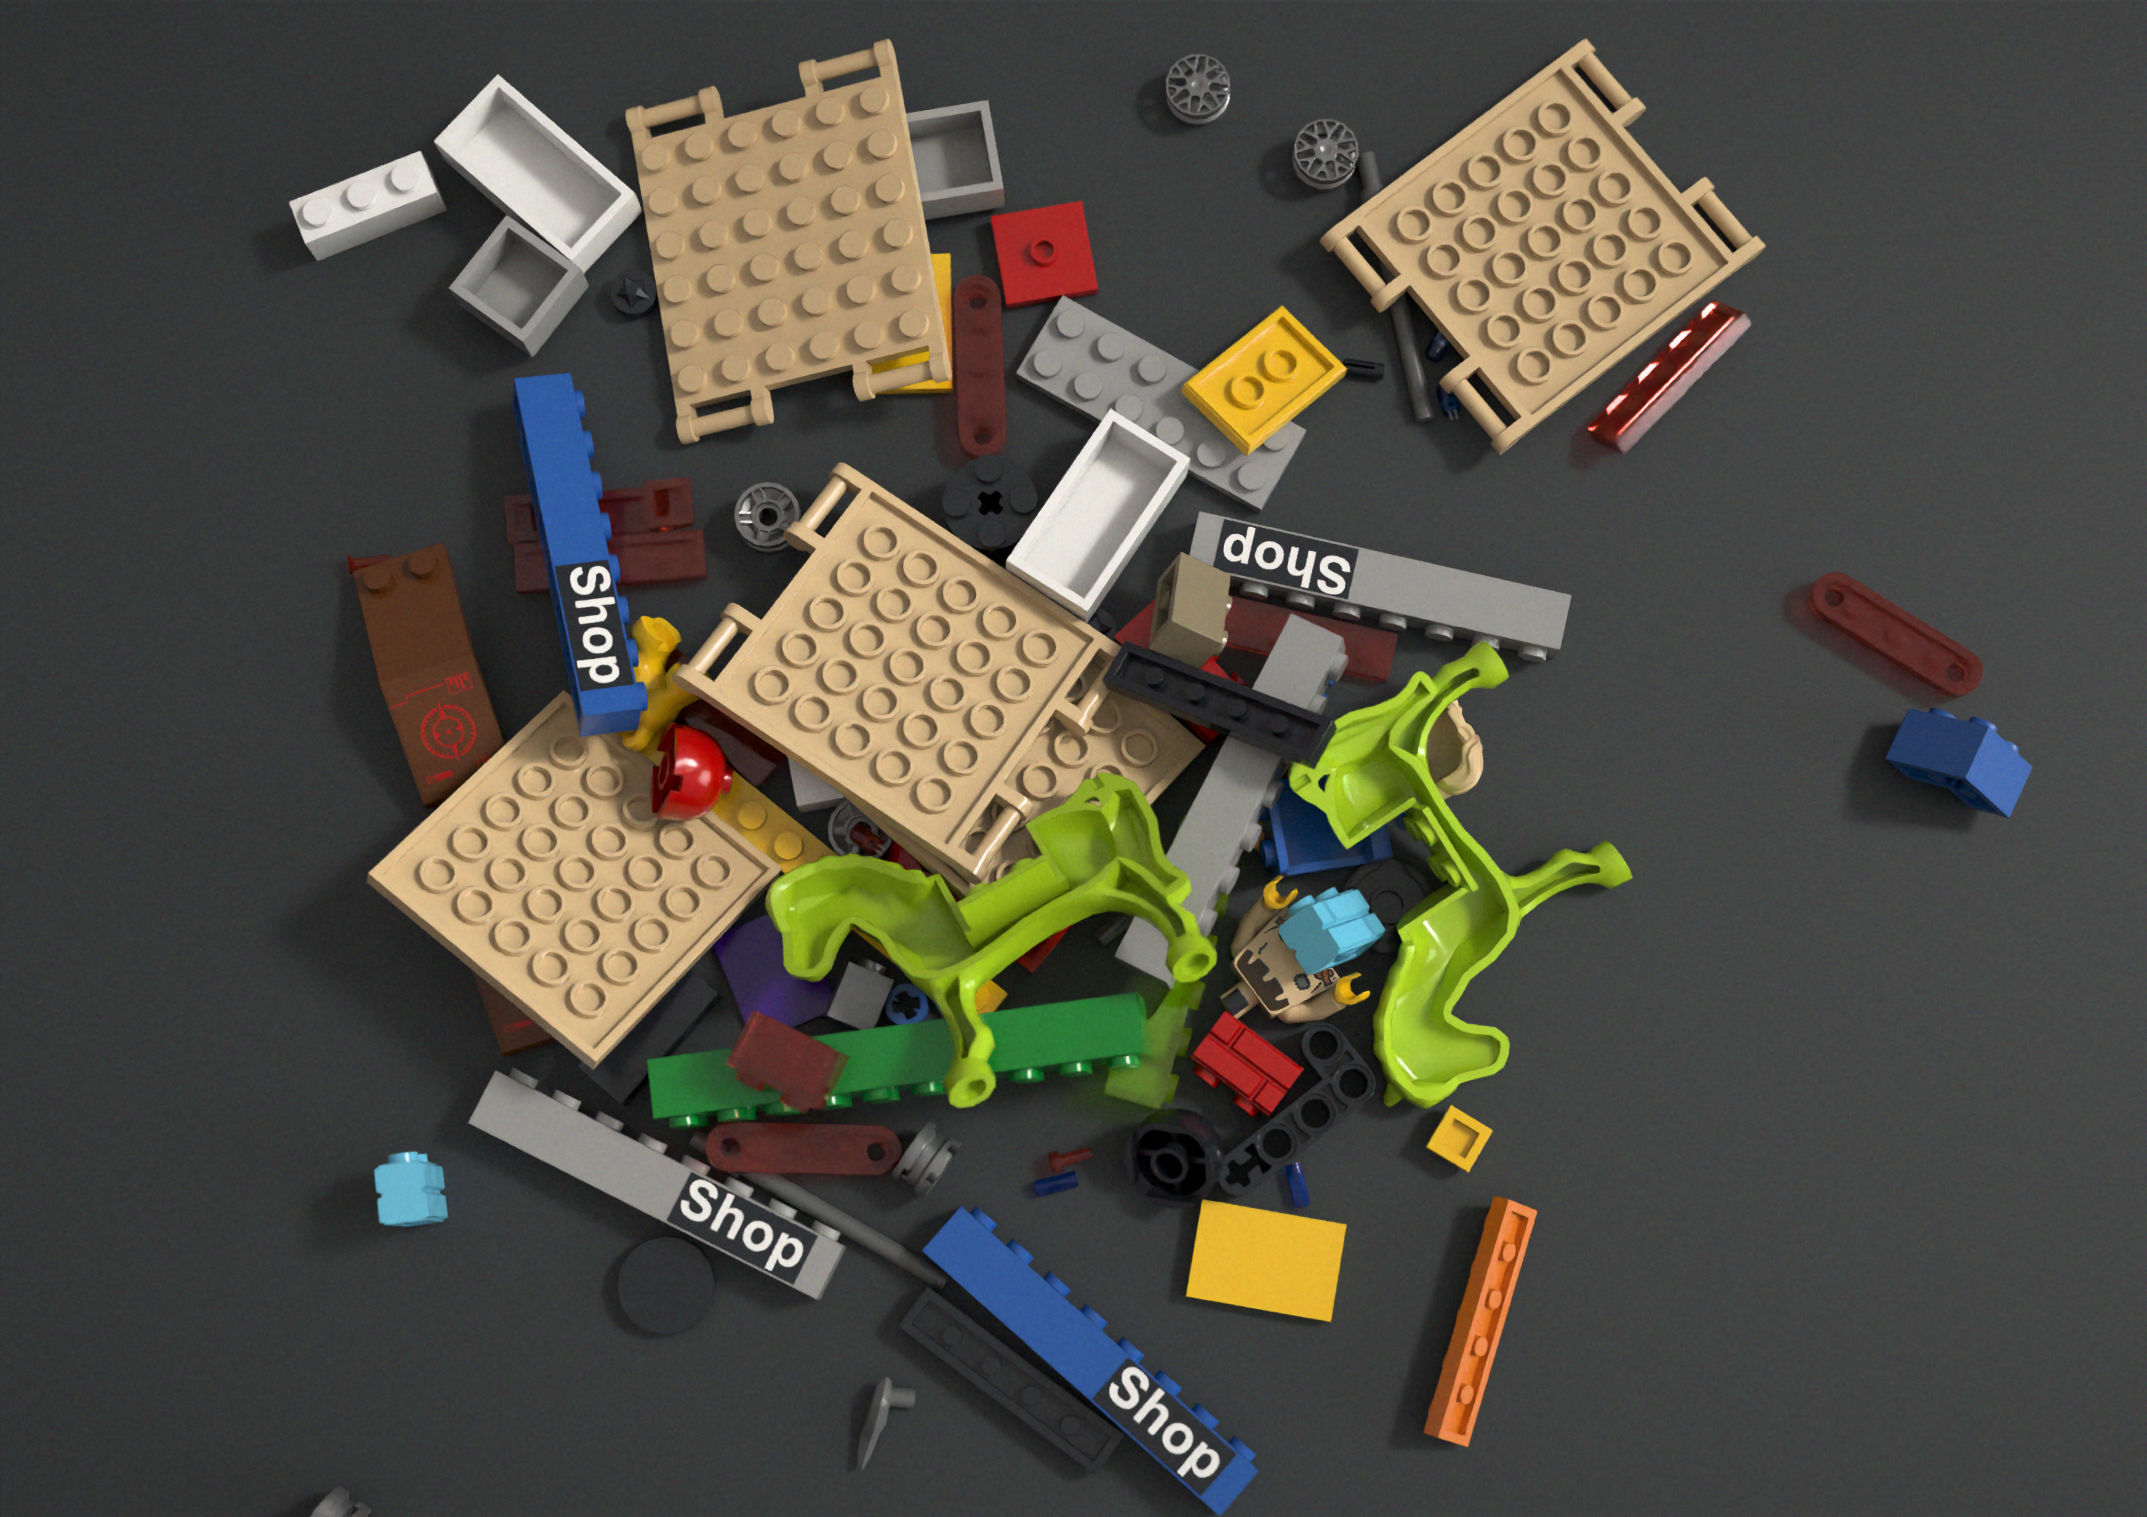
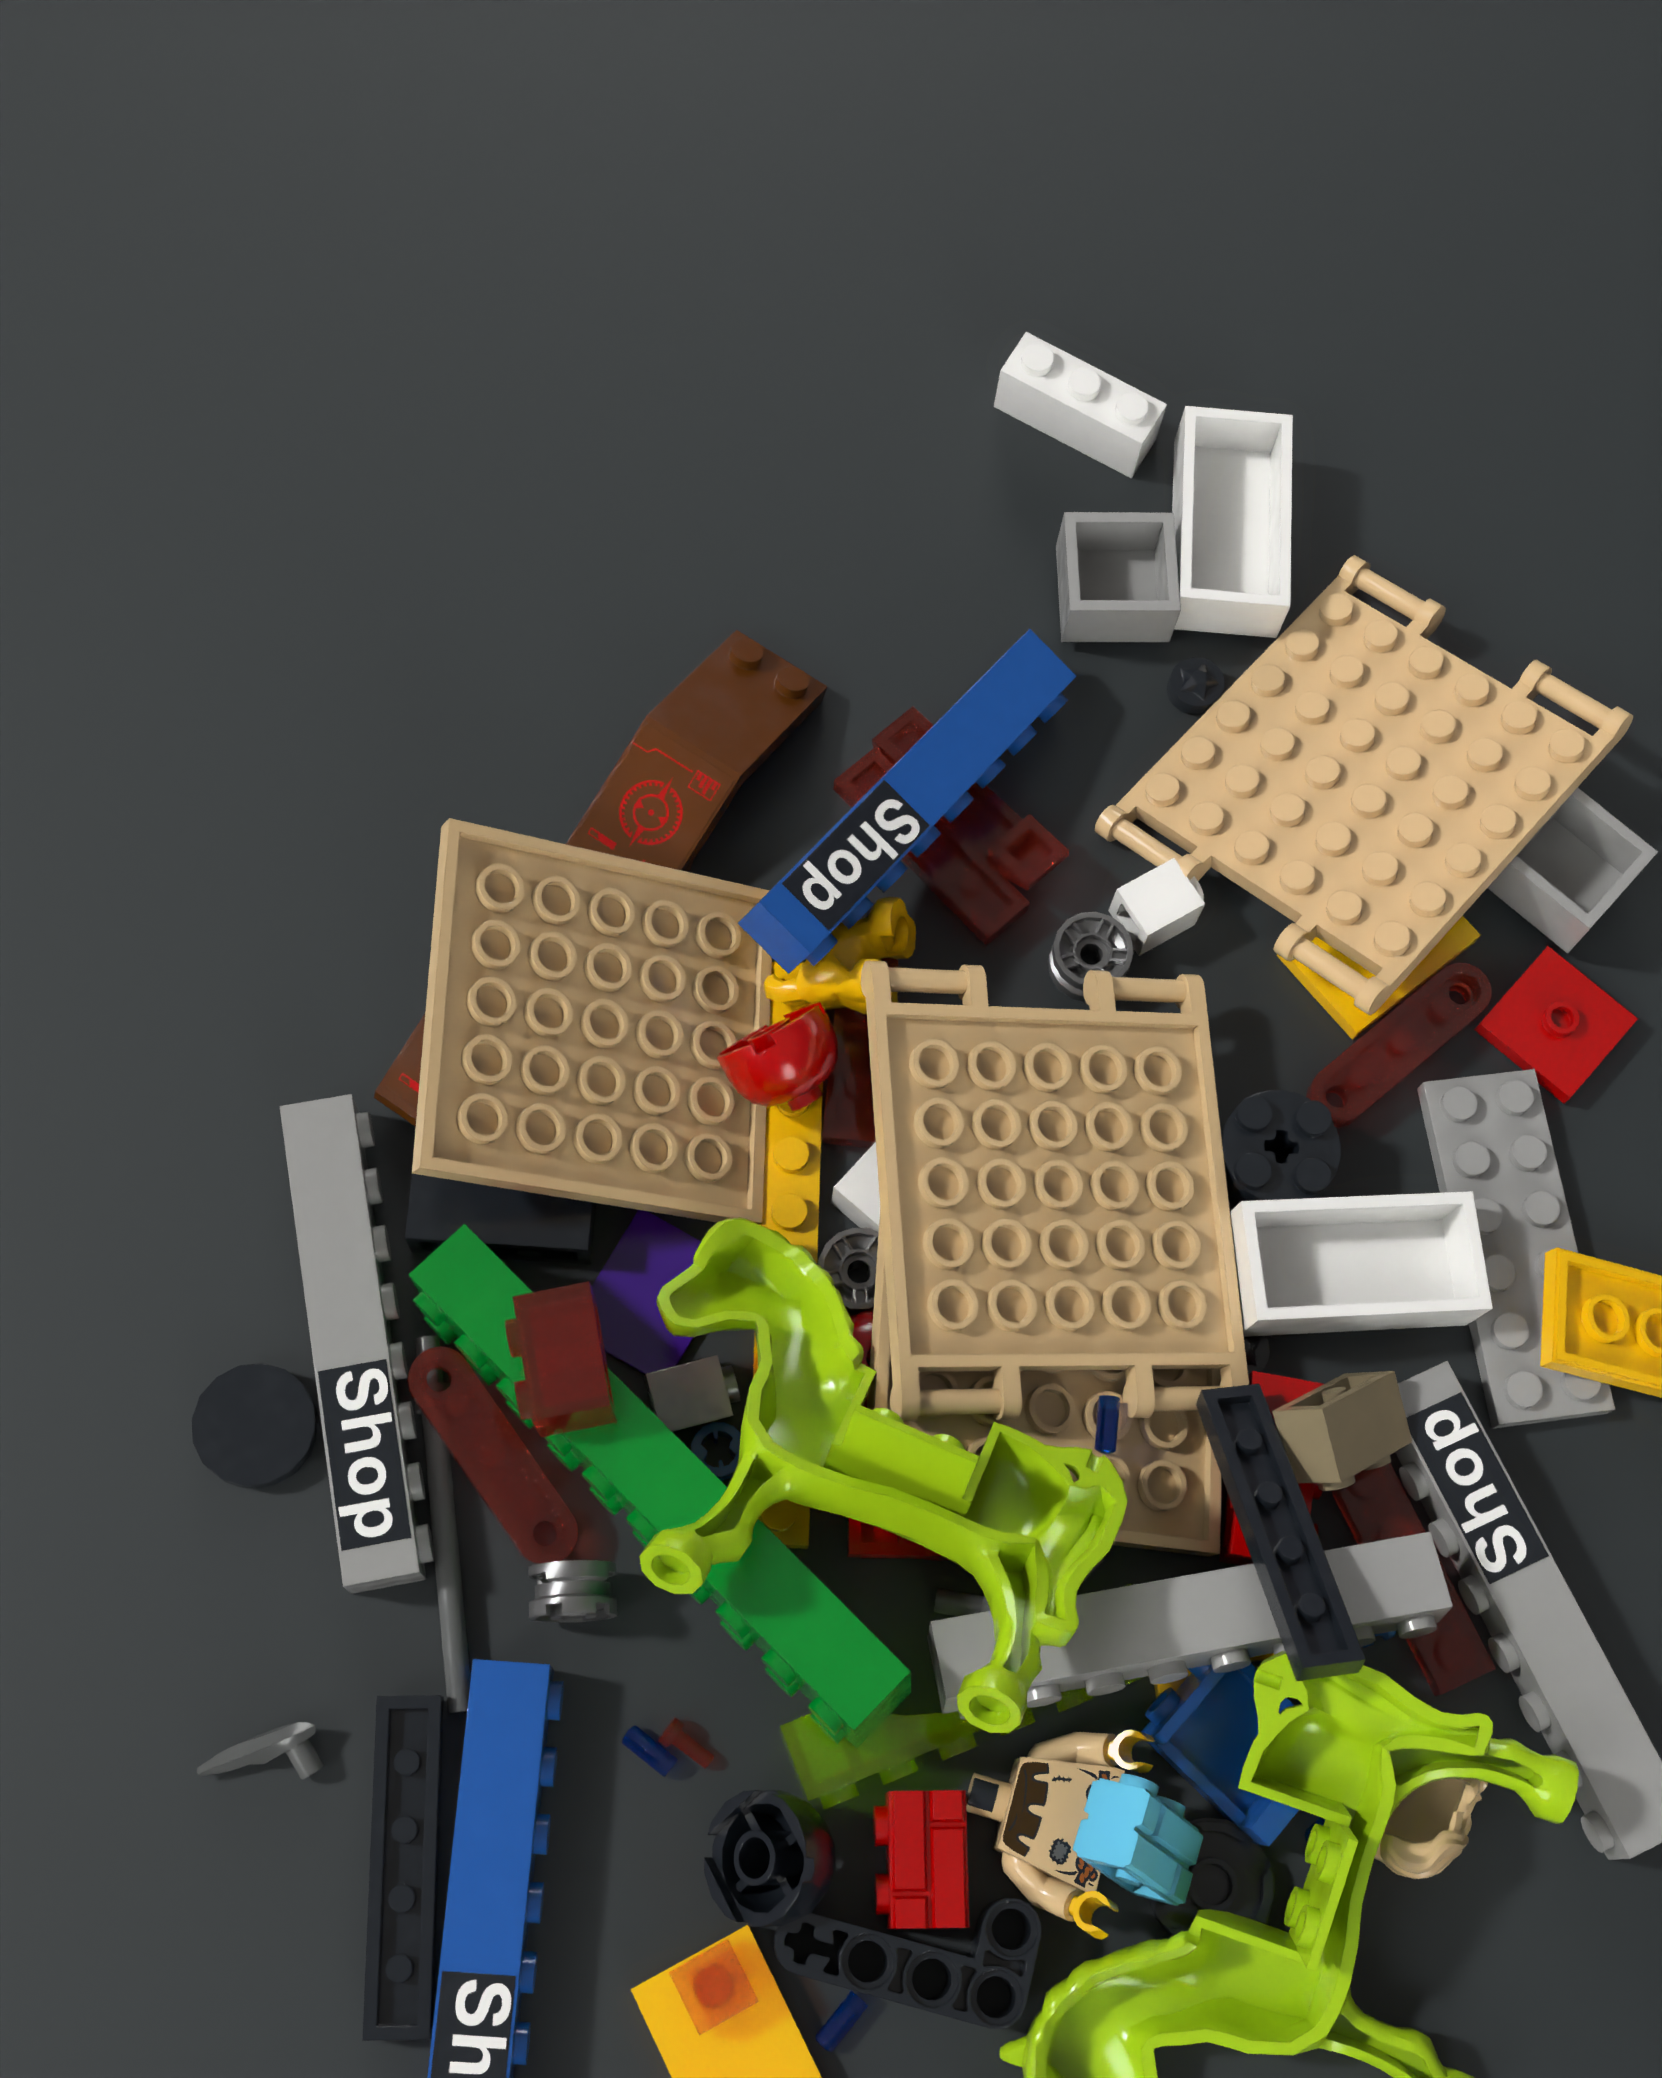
camera: 45 degrees right, 10 degrees down
(358, 563) = (748, 630): clear red piece -> none
(410, 1191) = (171, 1101): medium azure brick -> none
(769, 447) = (1157, 905): none -> white brick
(866, 839) = (853, 1280): clear red piece -> none
(1077, 753) = (1107, 1424): none -> clear blue piece
(1222, 1245) = (713, 1986): none -> clear orange plate

